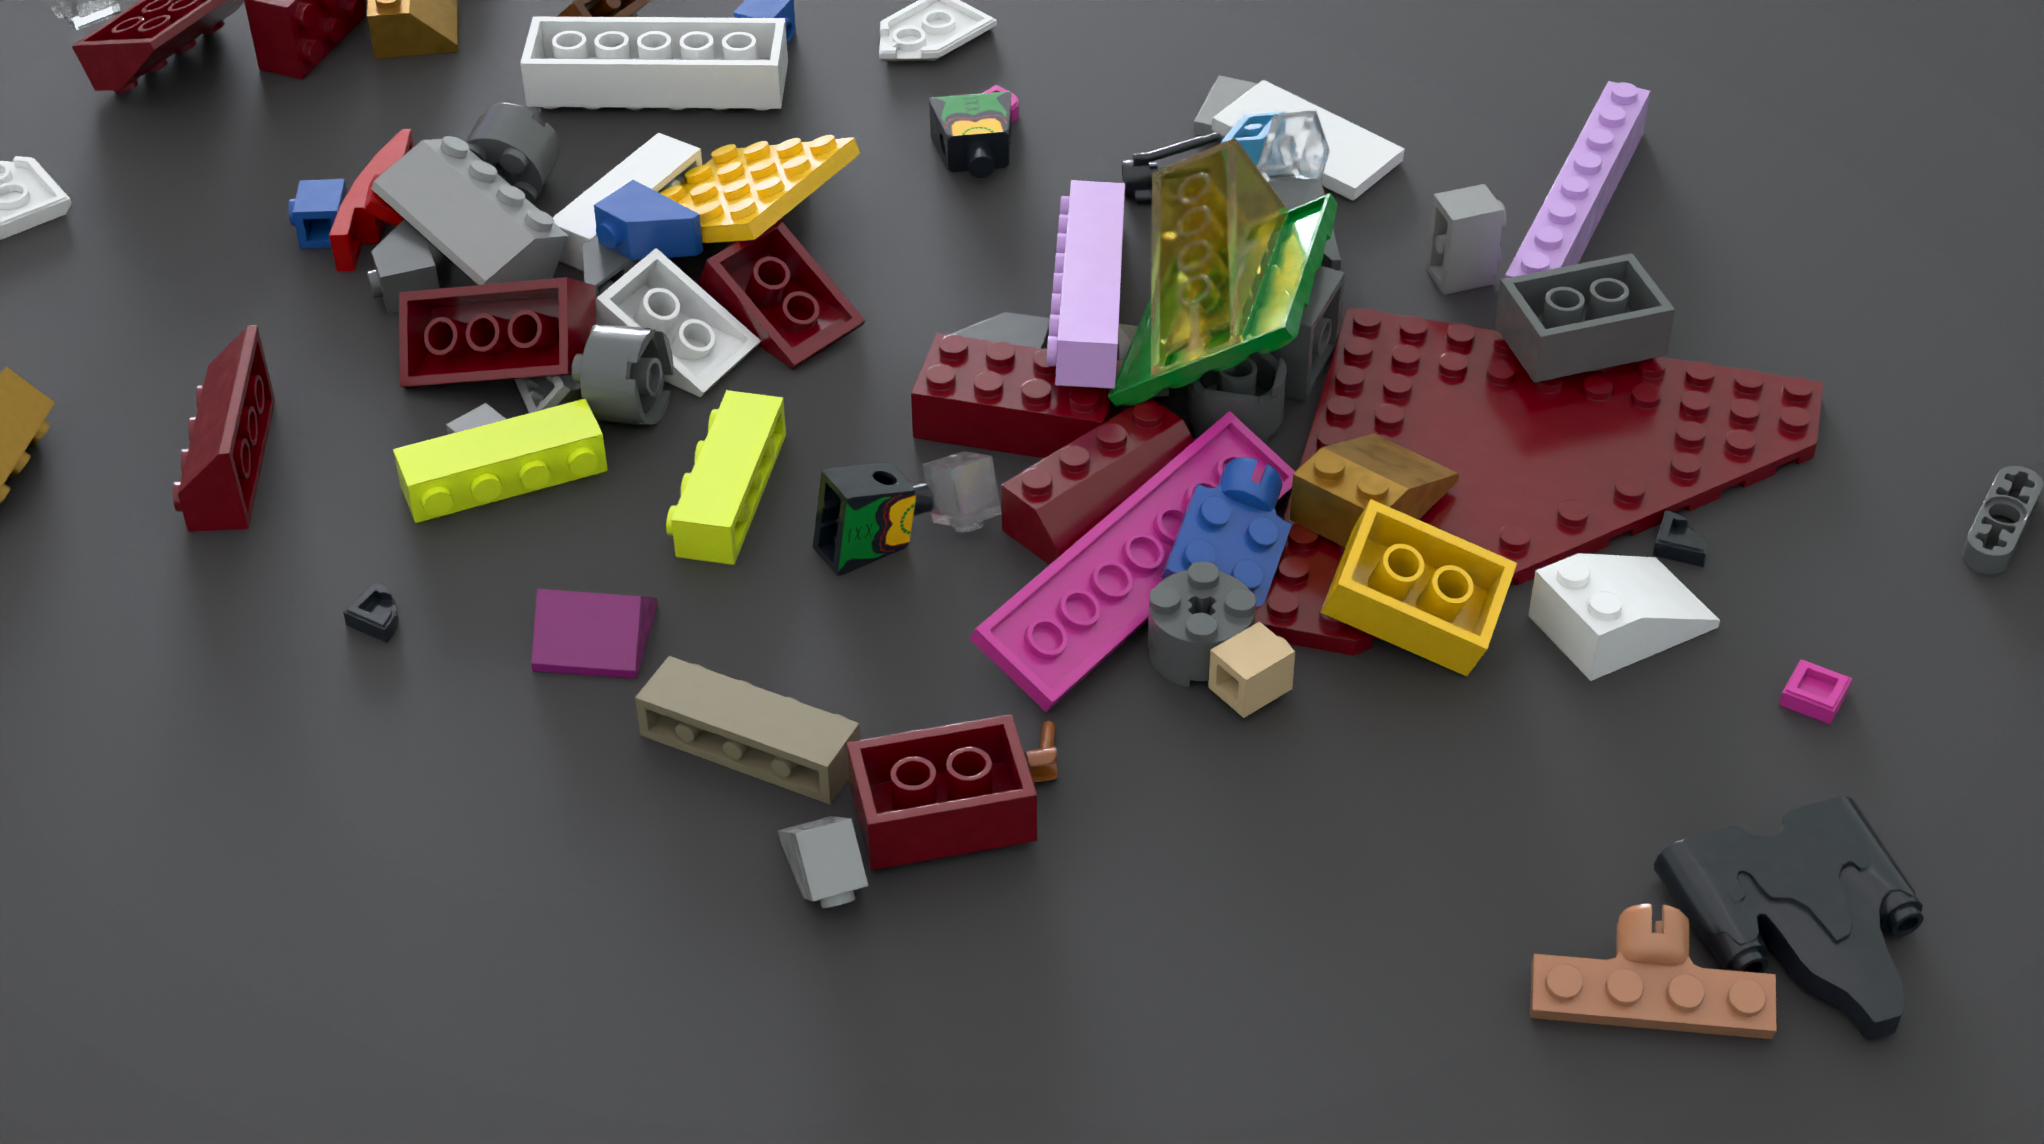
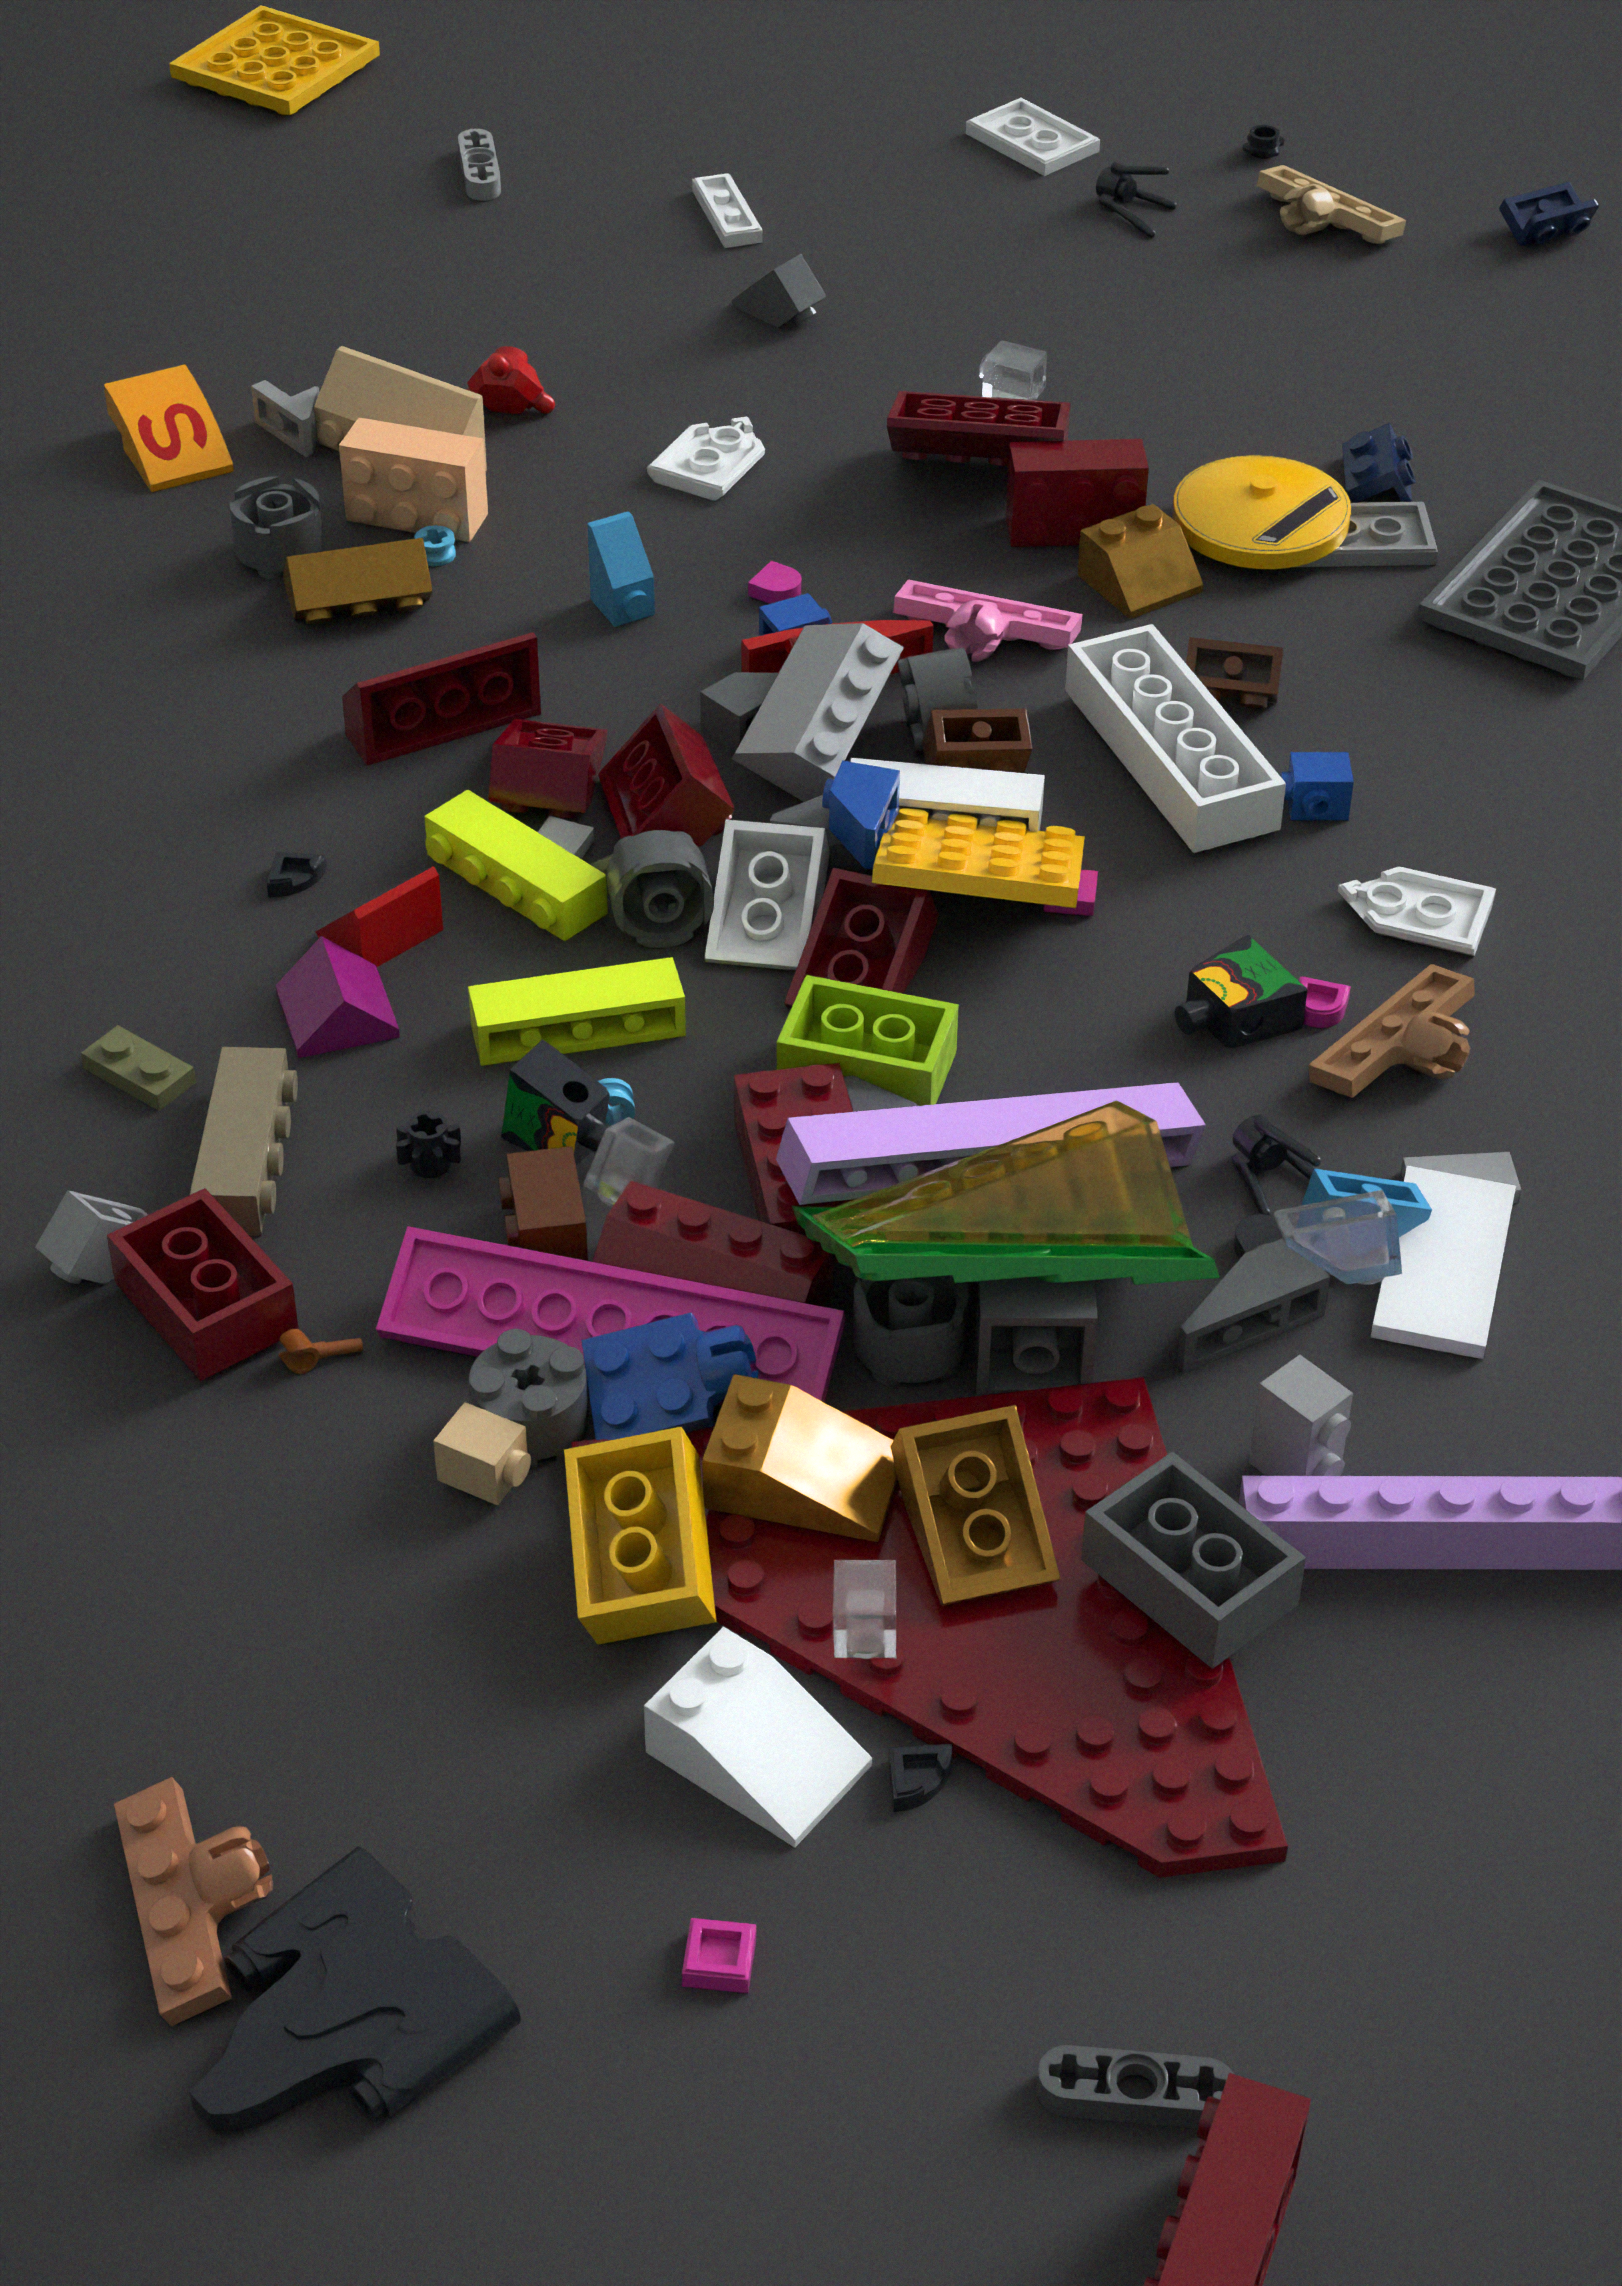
camera: 65 degrees right, 0 degrees up
(155, 279) = (619, 570): none -> dark azure slope
(234, 210) = (775, 583): none -> dark pink tile
(378, 402) = (546, 767): none -> dark red slope
(412, 107) = (983, 620): none -> bright pink plate
(502, 561) = (391, 921): none -> red slope
(578, 786) = (138, 1067): none -> olive plate
(582, 156) = (978, 739): none -> reddish brown brick
(839, 610) = (428, 1144): none -> black gear
(893, 320) = (874, 1035): none -> lime brick
(977, 553) = (544, 1203): none -> reddish brown brick
(1072, 77) = (1406, 1030): none -> medium nougat plate
(1461, 410) = (974, 1505): none -> pearl gold slope
(1547, 495) = (865, 1609): none -> clear brick

